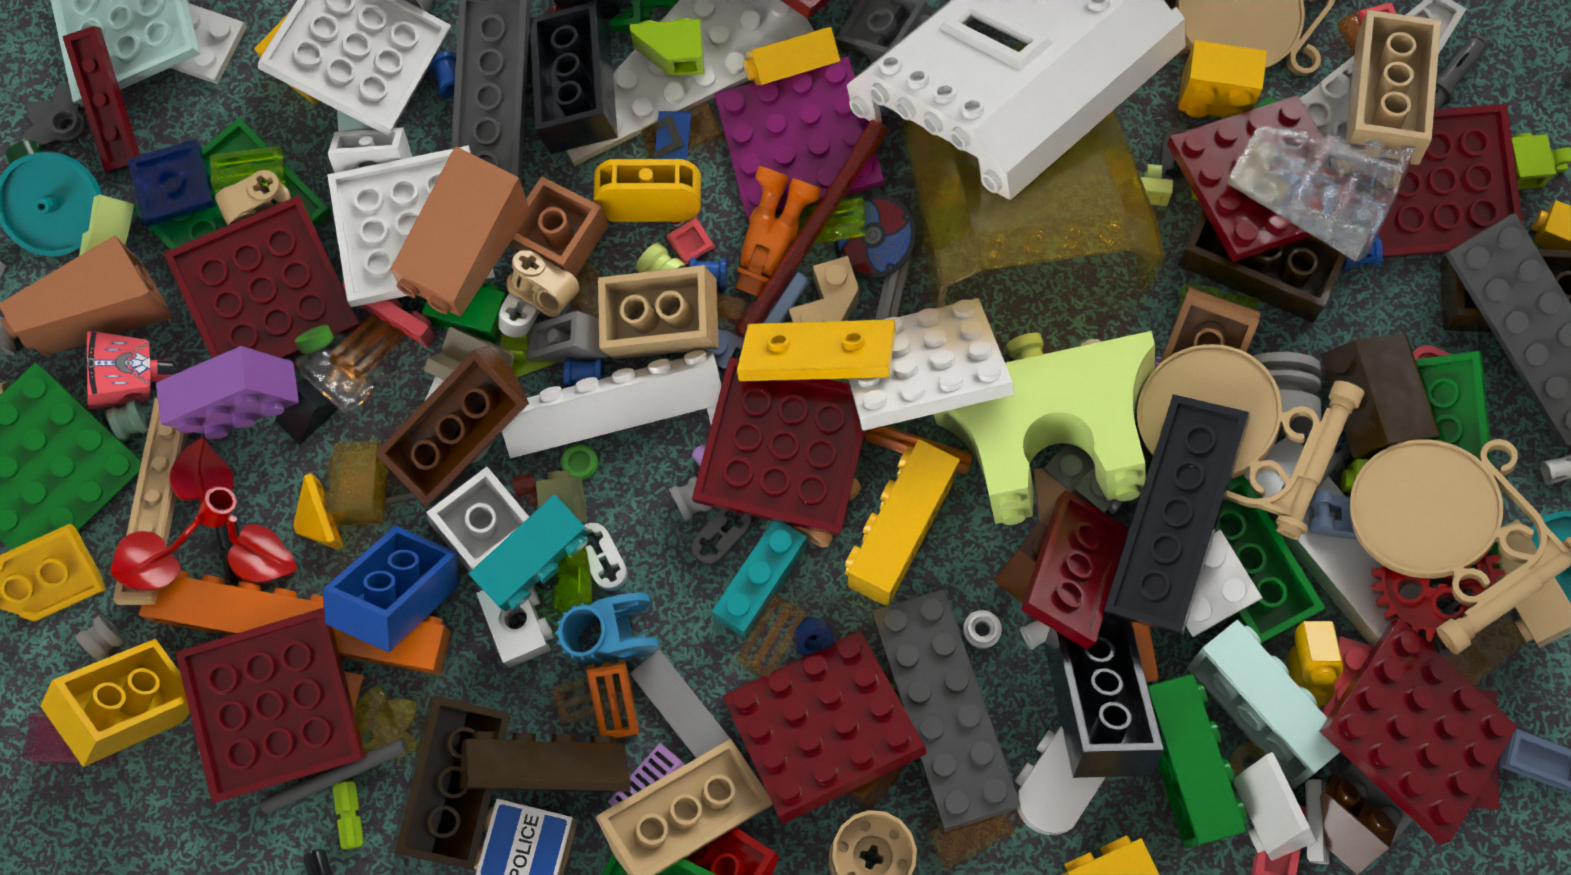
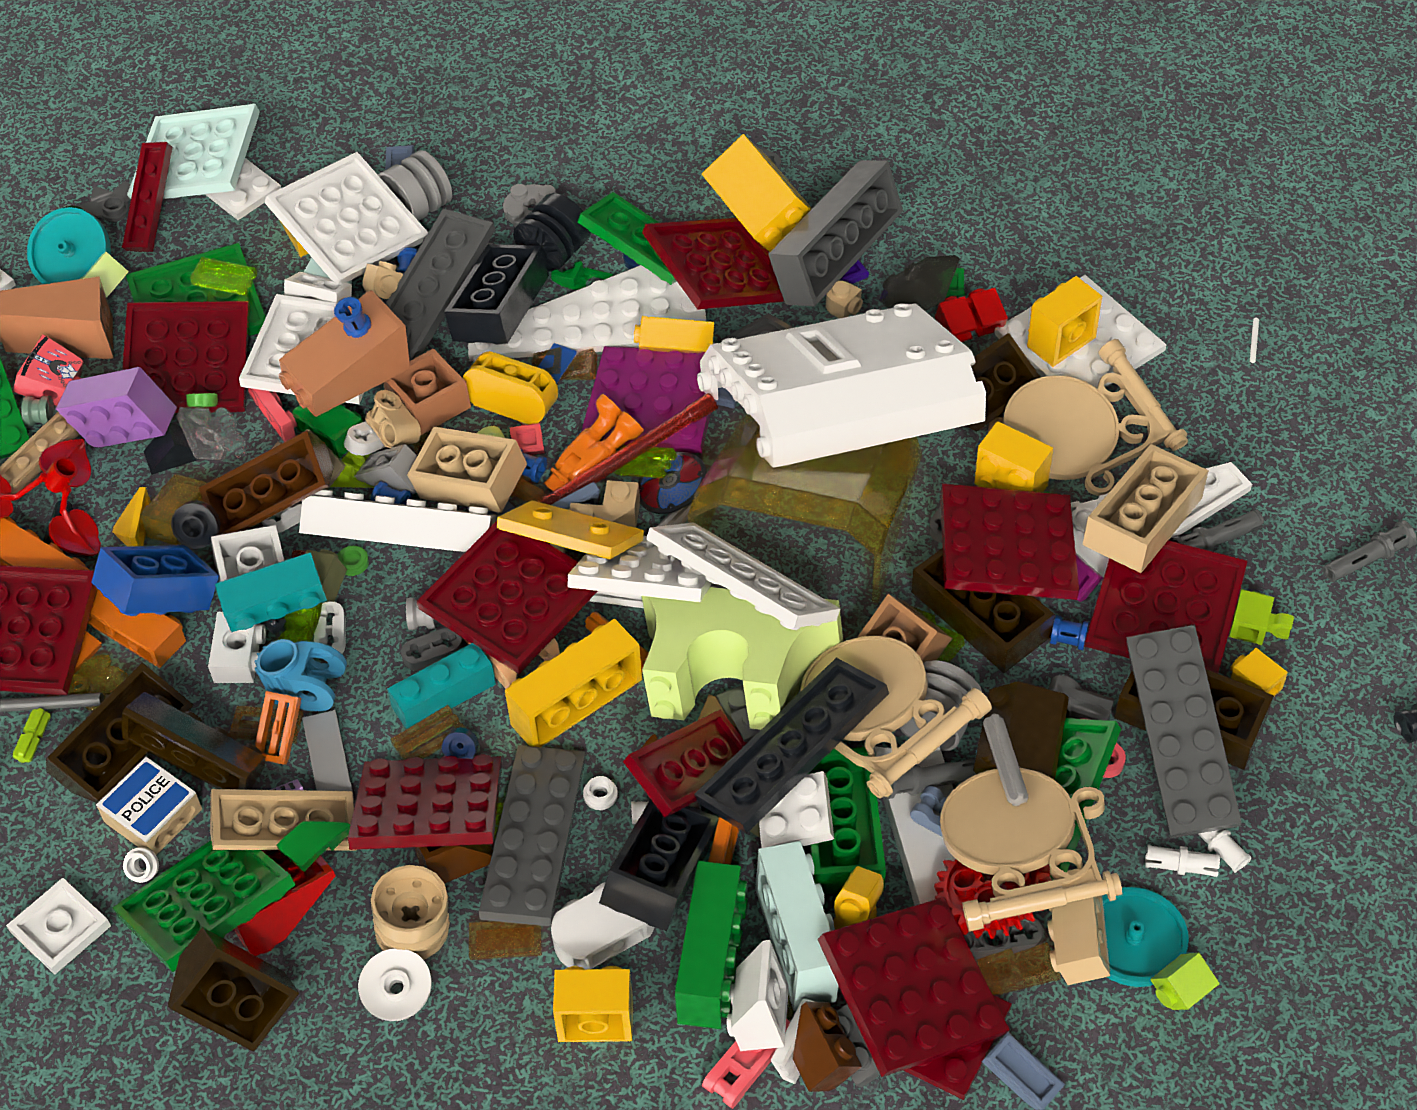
camera: 20 degrees right, 20 degrees down
(171, 182) = (162, 265): clear blue plate -> none
(251, 196) = (213, 289): tan piece -> none
(380, 330) = (234, 418): clear orange tile -> none
(398, 501) = (195, 524): none -> black plate
(433, 107) = (381, 279): none -> tan plate
(447, 195) = (344, 315): none -> blue bush
(671, 45) = (587, 298): lime slope -> none
(733, 828) = (311, 839): none -> green slope
(1044, 345) = (743, 575): none -> white plate
(1157, 189) = (917, 526): yellowish green tile -> none
(1323, 185) = (1046, 556): clear wedge -> none
(1397, 444) = (1005, 760): none -> light grey axle
(1421, 328) = (1082, 702): none -> dark grey piece

